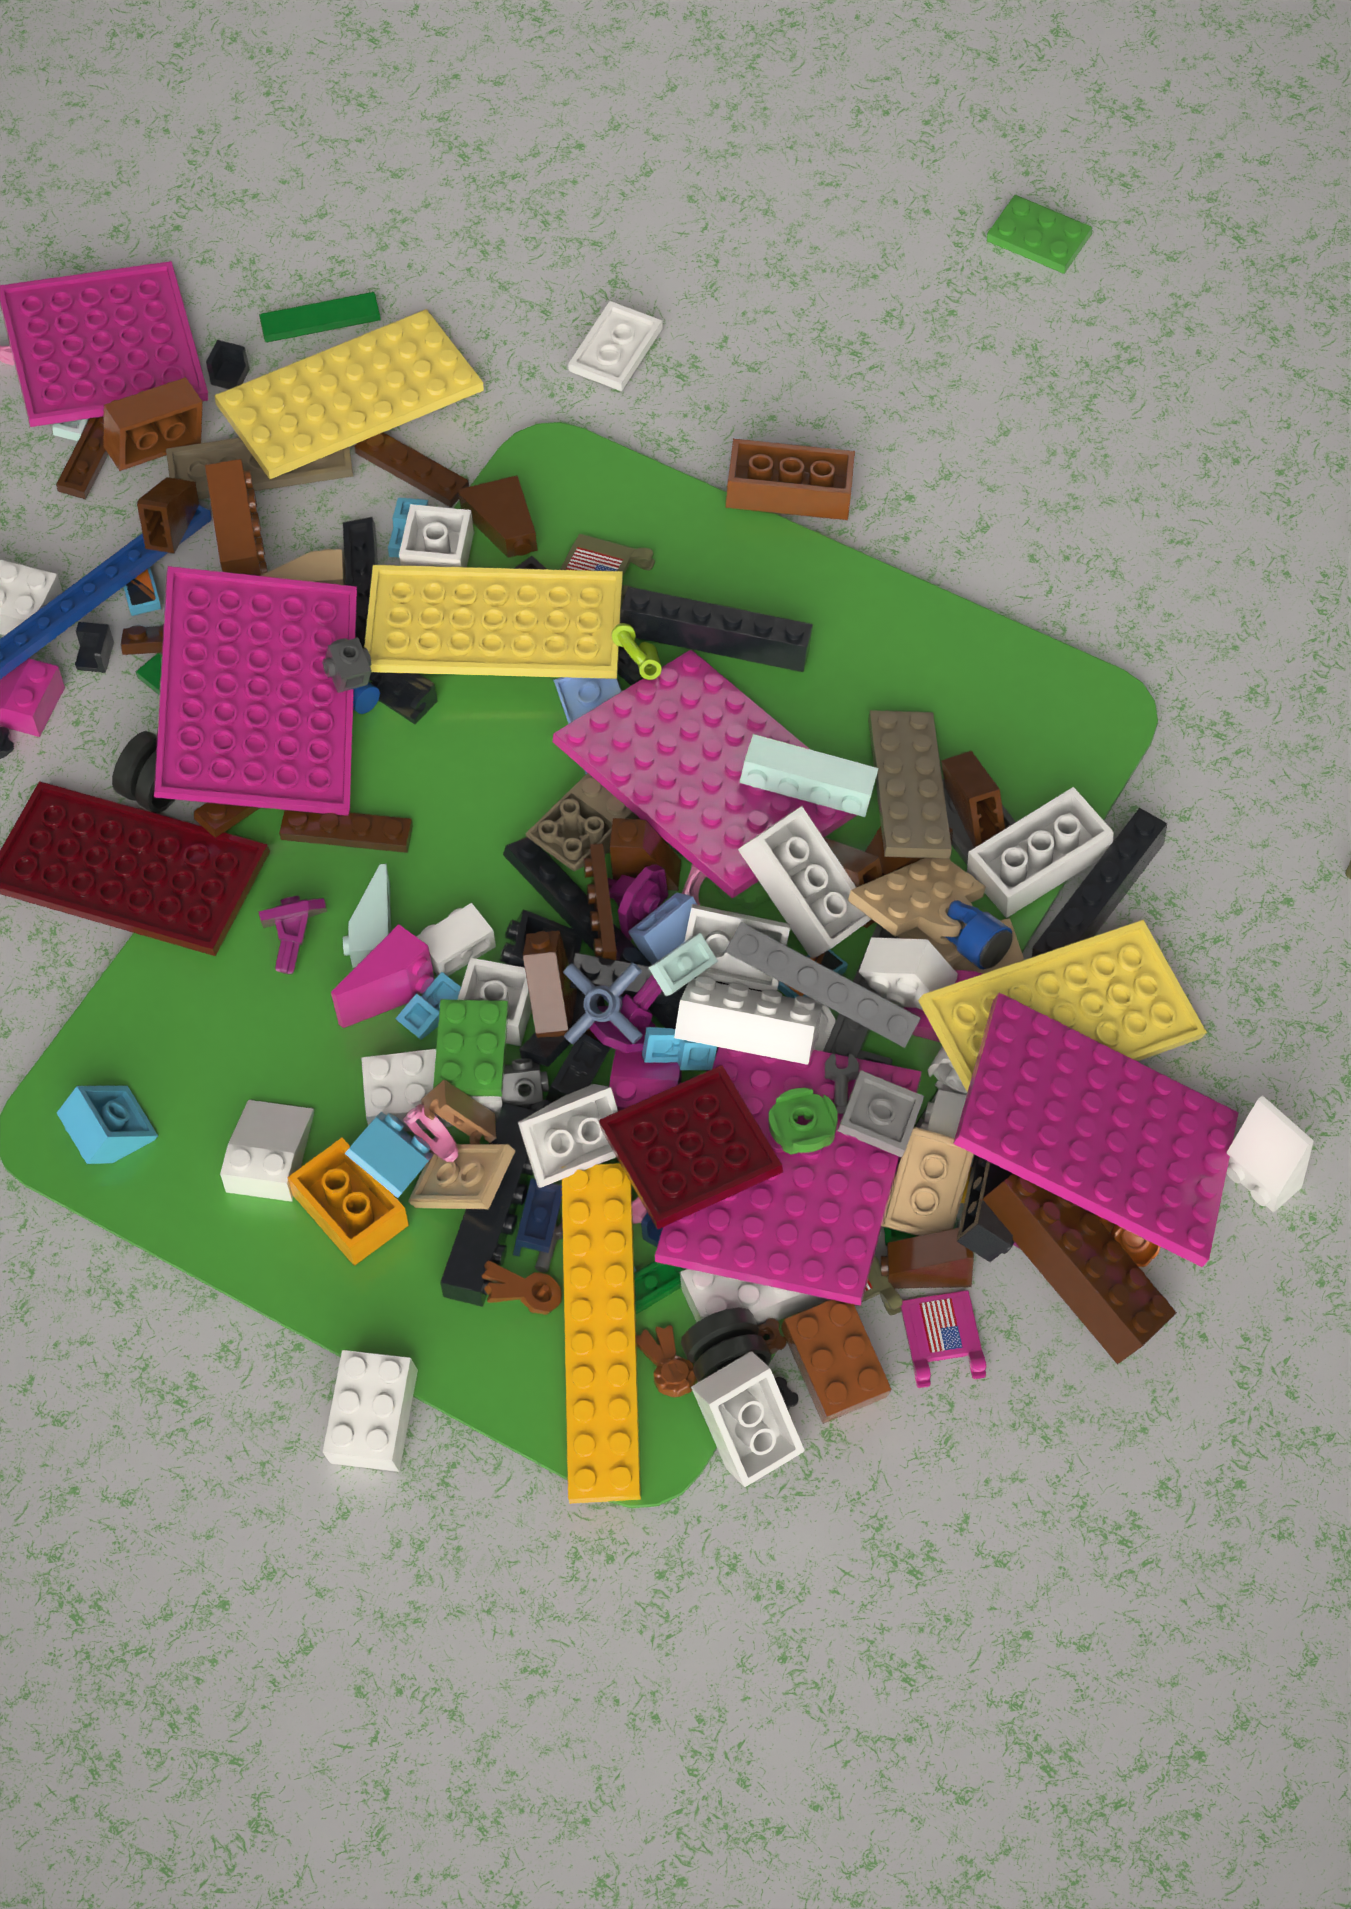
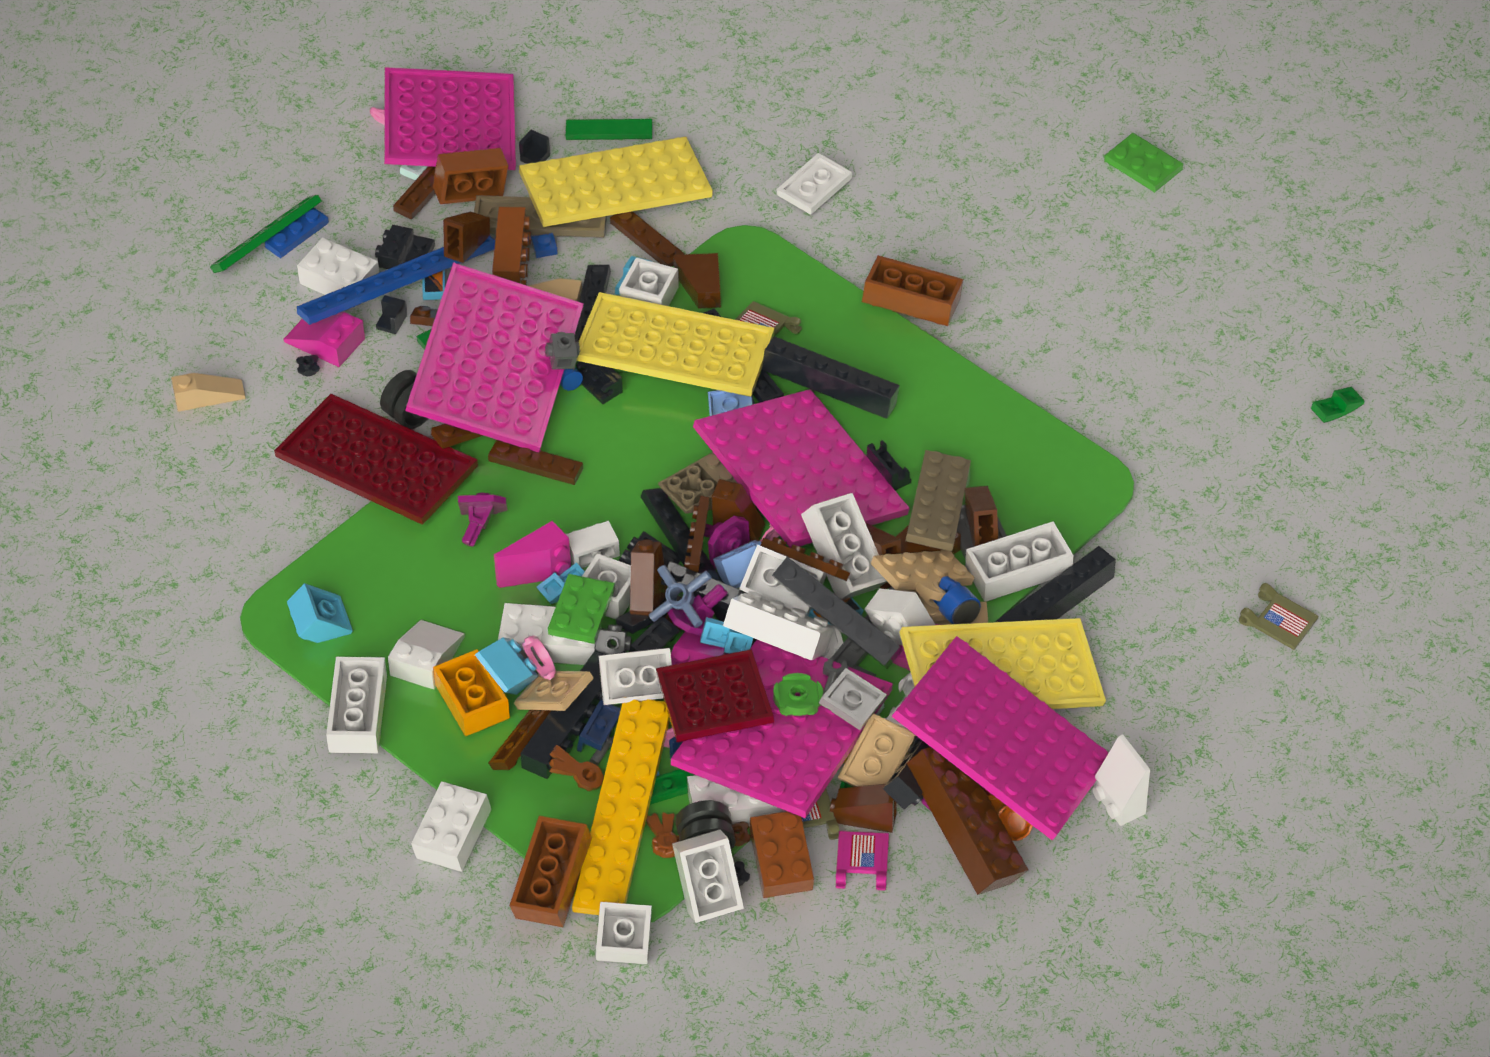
camera: 10 degrees right, 10 degrees down
(83, 544) = (401, 246): none -> black plate
(193, 1253) = (356, 705): none -> white brick
(275, 503) = (544, 245): none -> blue plate
(371, 918) = (537, 515): light aqua slope -> none
(430, 1258) = (510, 750): none -> reddish brown plate
(460, 1112) = (563, 647): medium nougat hinge -> none
(527, 1454) = (550, 871): none -> dark orange brick
(644, 655) = (774, 385): lime plant -> none
(651, 1526) = (623, 933): none -> white brick
(683, 964) = (742, 580): light aqua plate -> none
(772, 914) = (814, 560): none -> reddish brown plate
(808, 775) = (867, 480): light aqua brick -> none
(822, 740) = (888, 466): none -> black hinge

